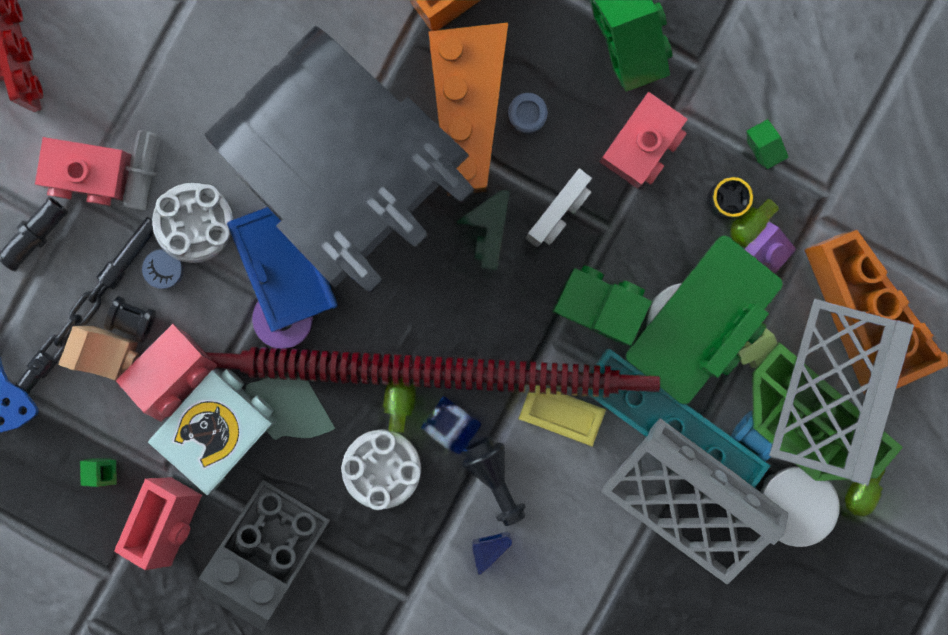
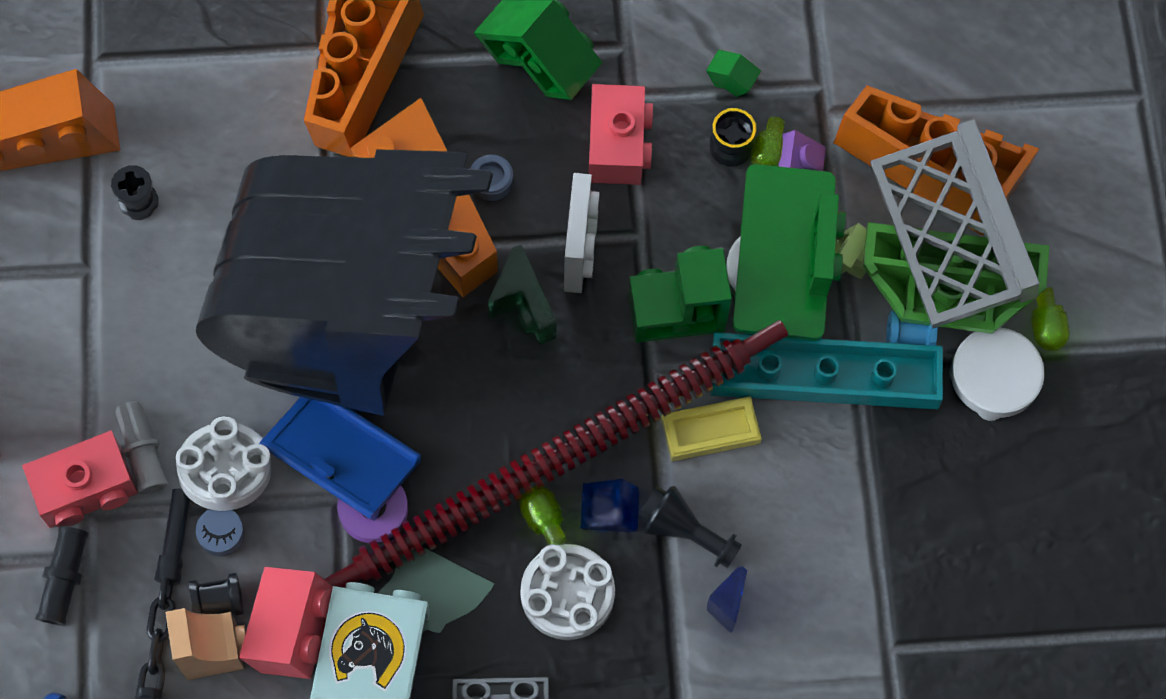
camera: 35 degrees left, 20 degrees down
(719, 484) = (890, 387): light grey fence -> none

